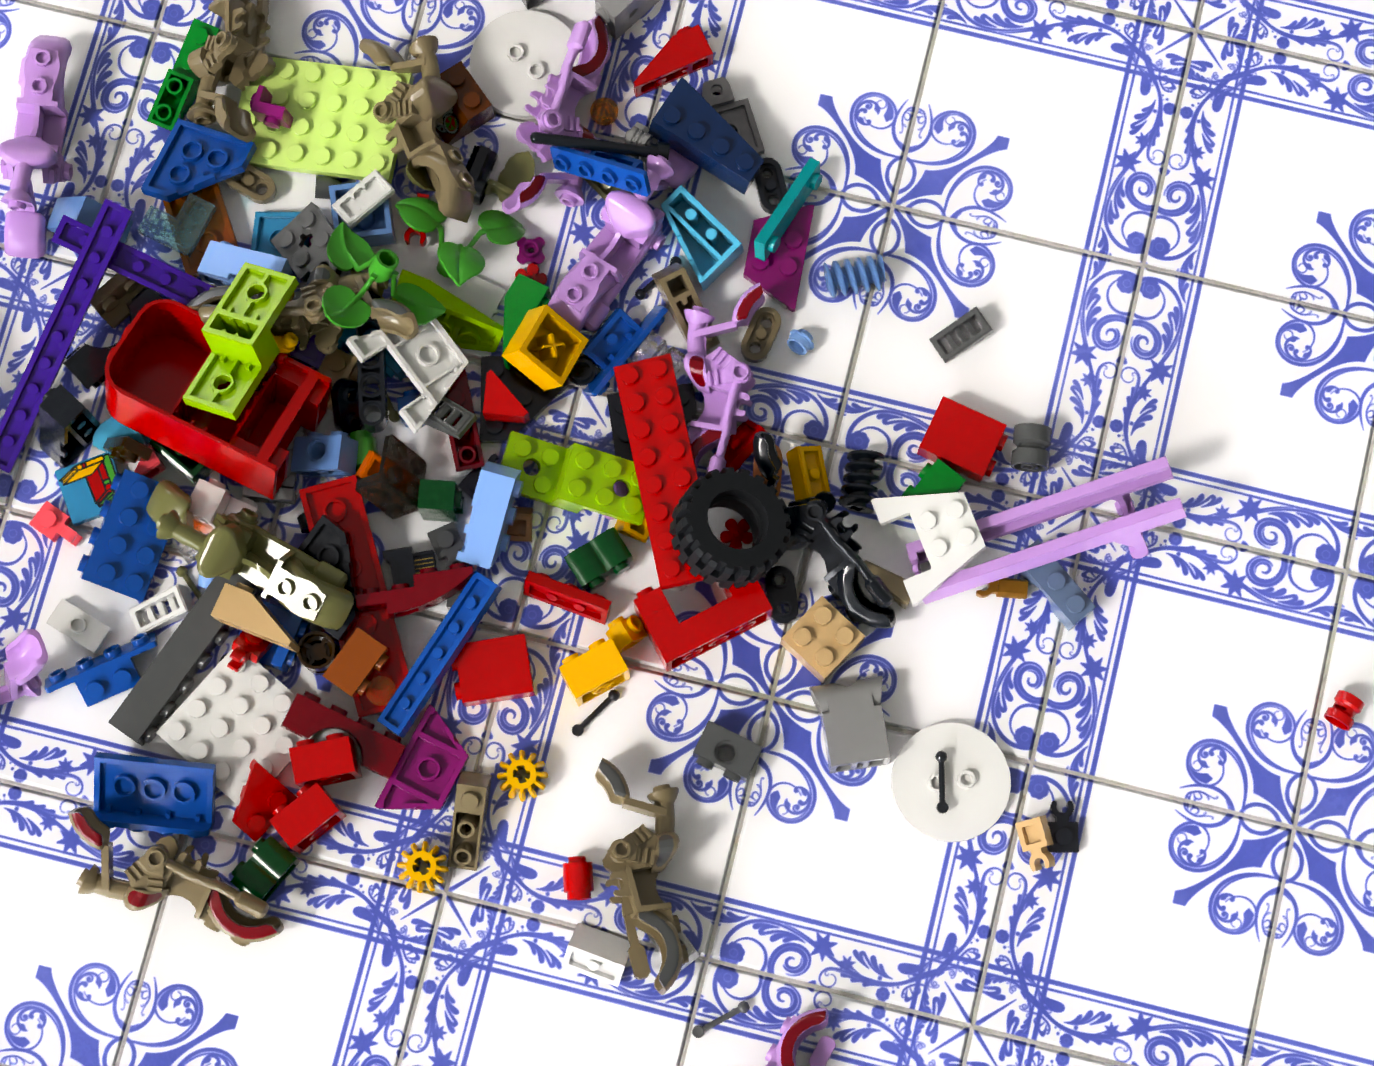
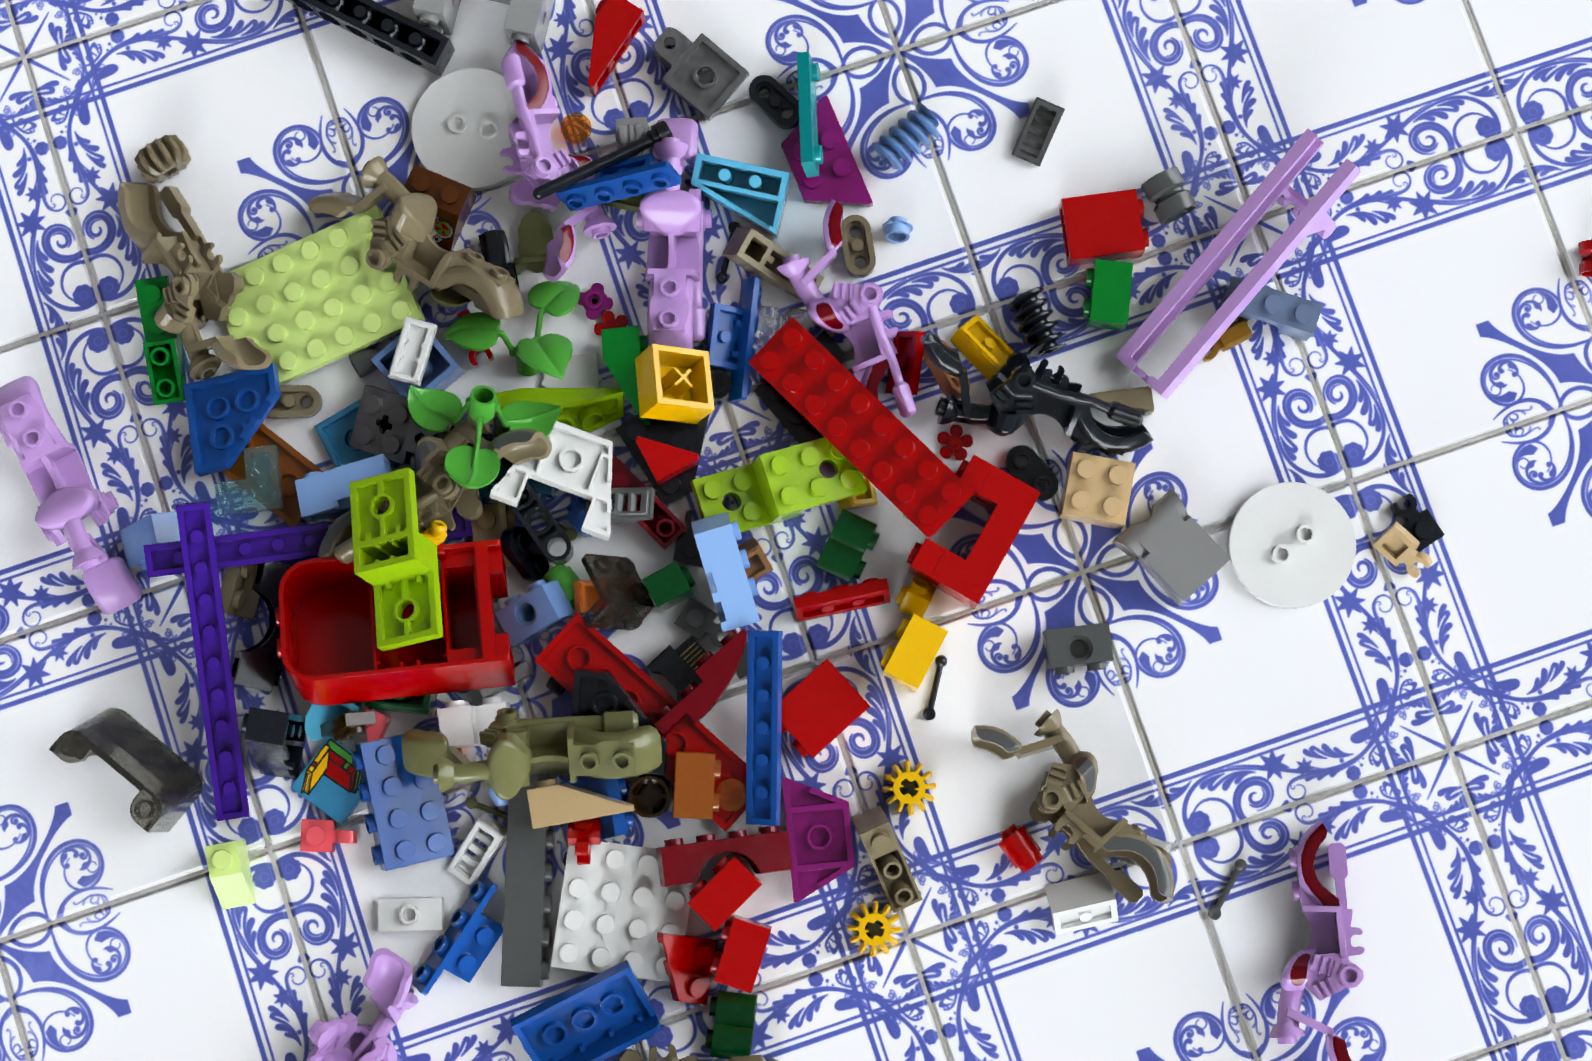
camera: 30 degrees left, 5 degrees up
(268, 113) = (271, 326): magenta bracket -> none
(705, 137) = (691, 94): dark blue wedge -> none
(754, 503) = (973, 409): black tyre -> none
(942, 806) = (1301, 572): black hinge -> none
(945, 531) = (1149, 323): white wing -> none

